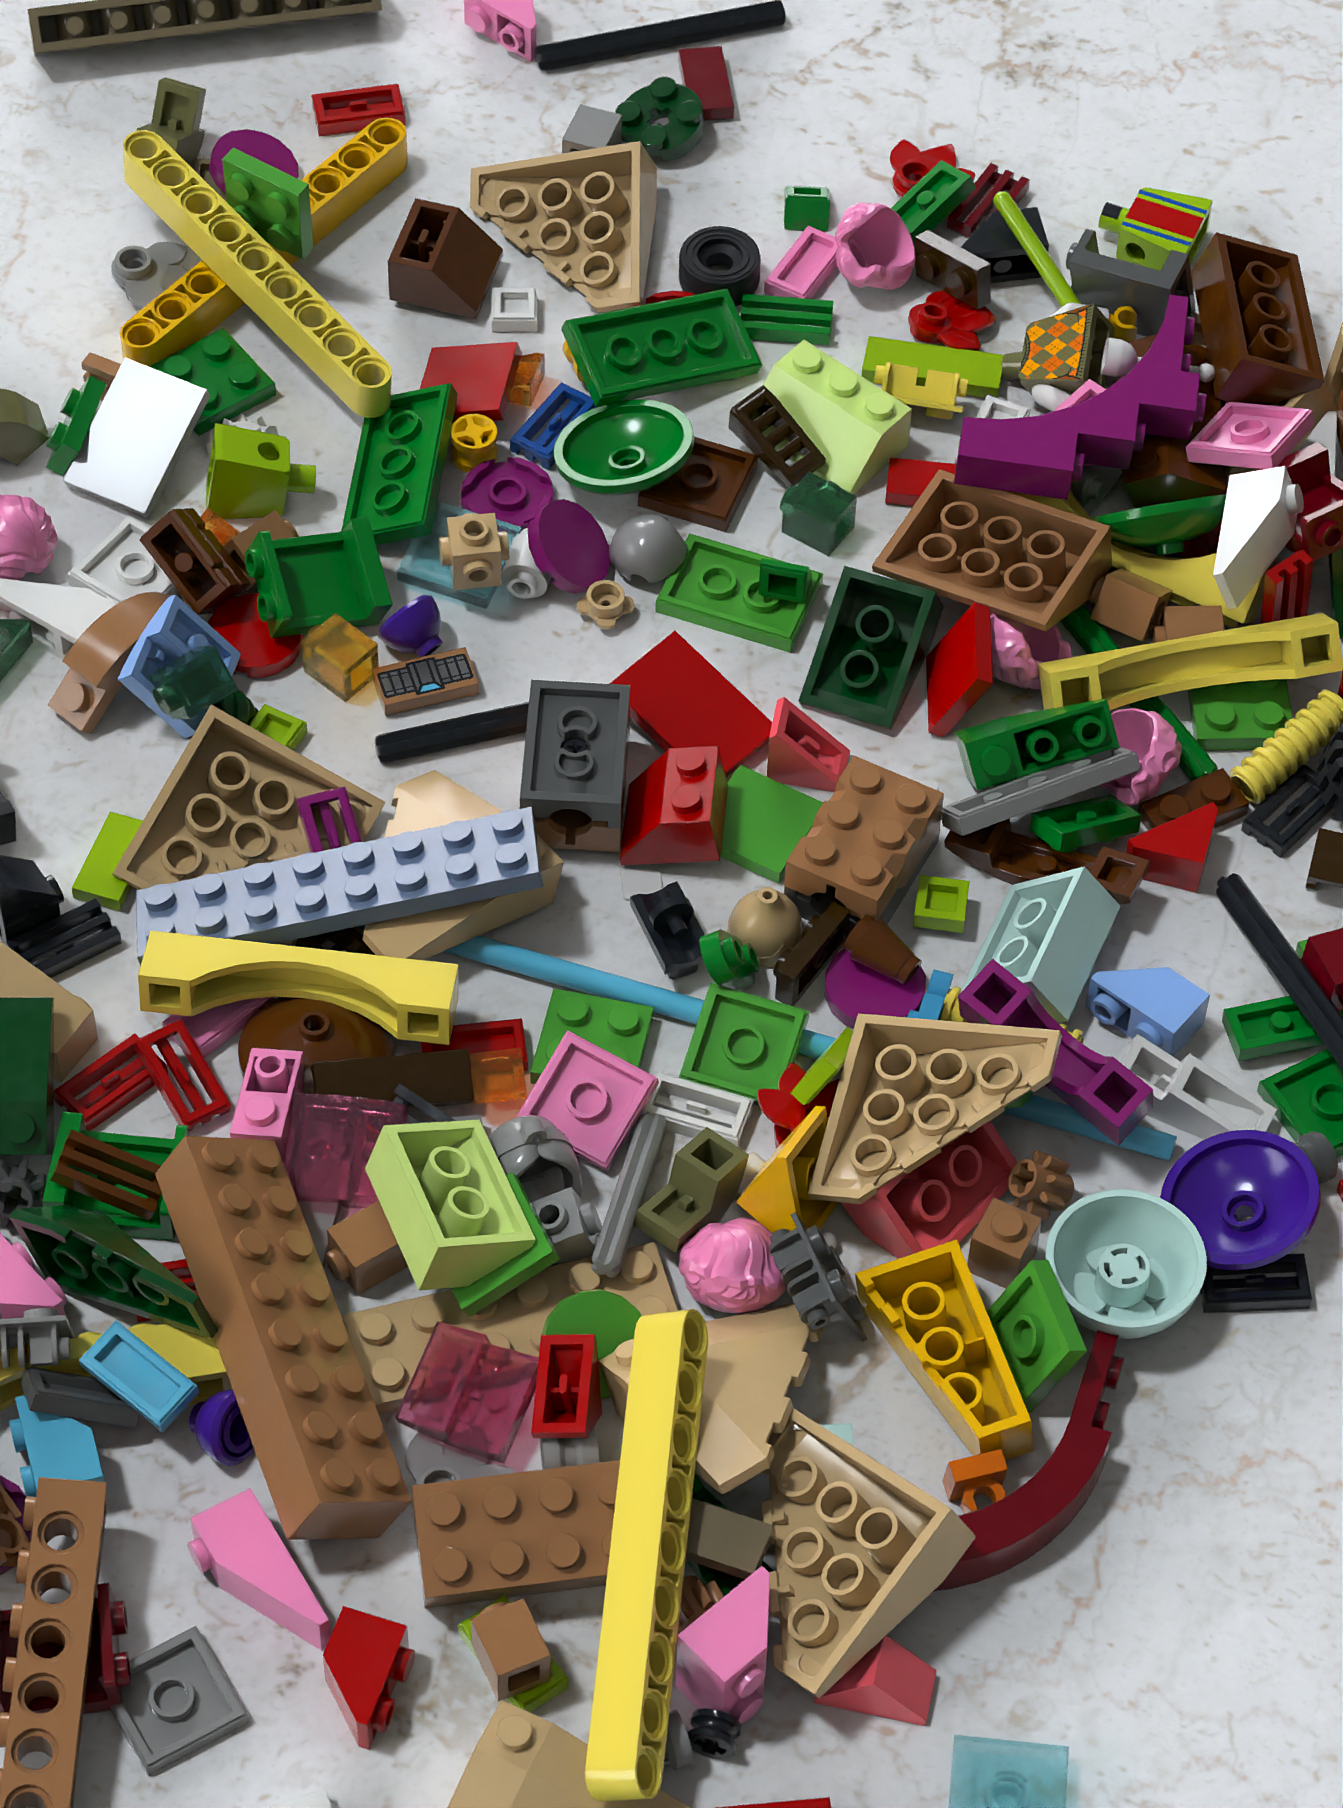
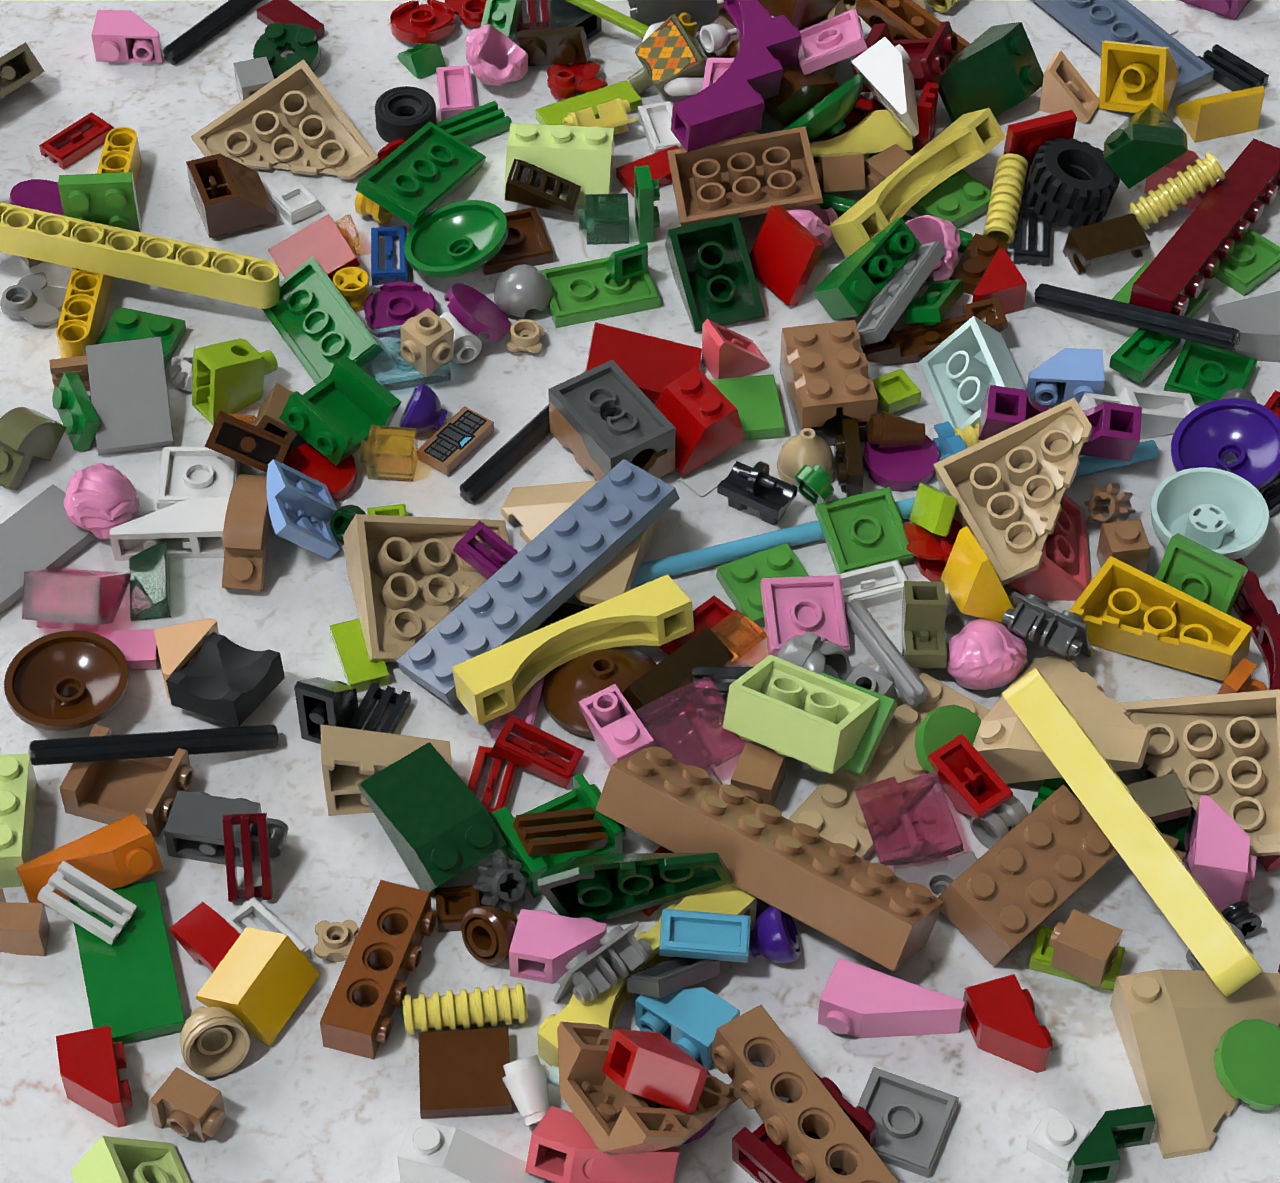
camera: 35 degrees left, 5 degrees down
(192, 683) = (328, 509): clear green brick -> none
(846, 160) = (422, 22): none -> red tile
(862, 520) = (645, 193): none -> green plate

